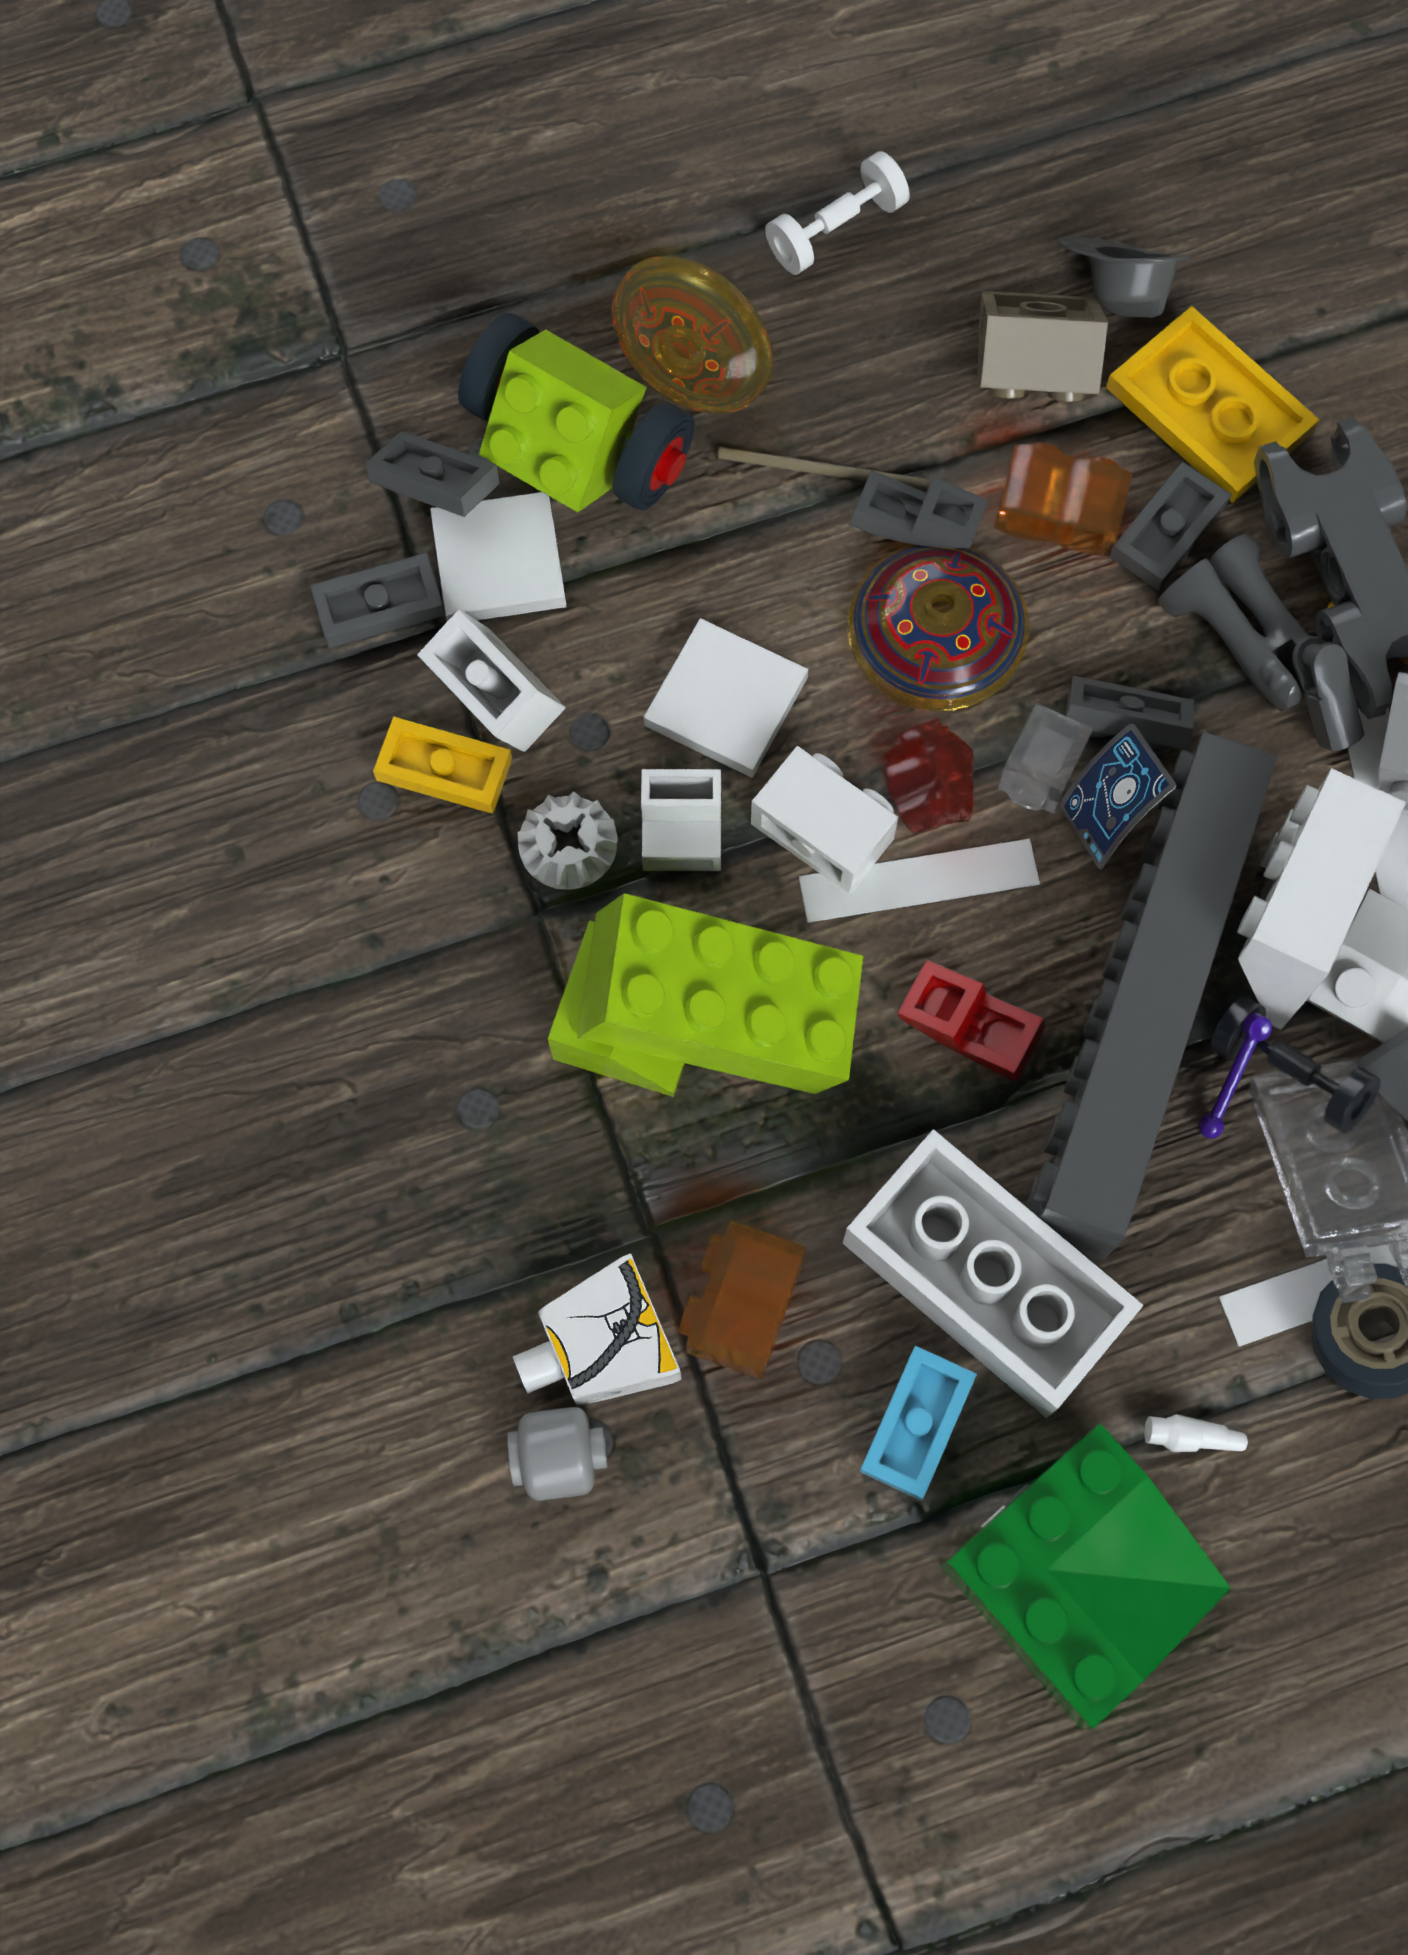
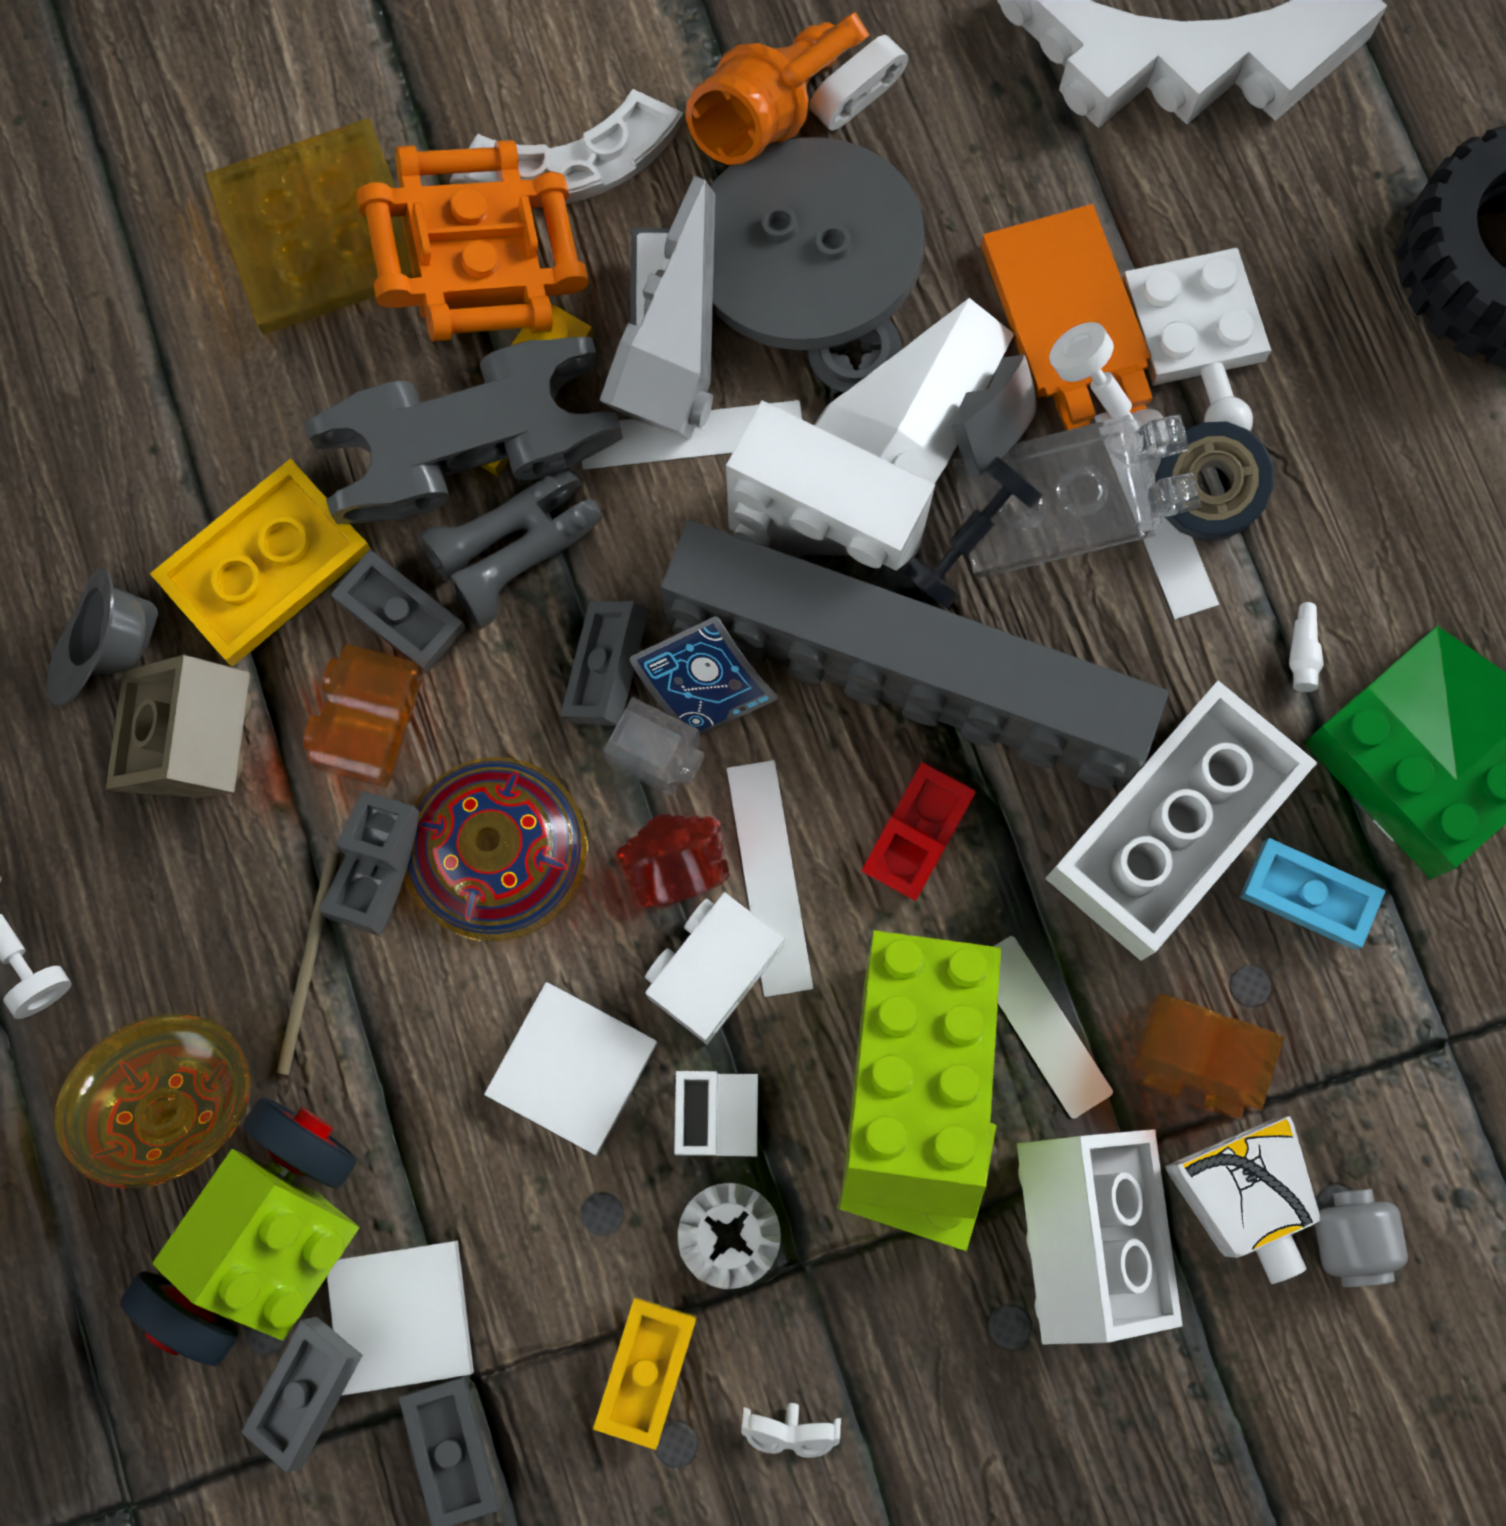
camera: 90 degrees left, 5 degrees up
(378, 908) = (805, 1439): none -> white piece
(491, 681) = (559, 1321): white brick -> none
(562, 1187) = (1098, 1237): none -> white slope
(771, 1146) = (1048, 1033): none -> white sticker
(1256, 1029) = (941, 563): dark purple hinge -> none
(1328, 693) = (595, 473): dark grey bar -> none

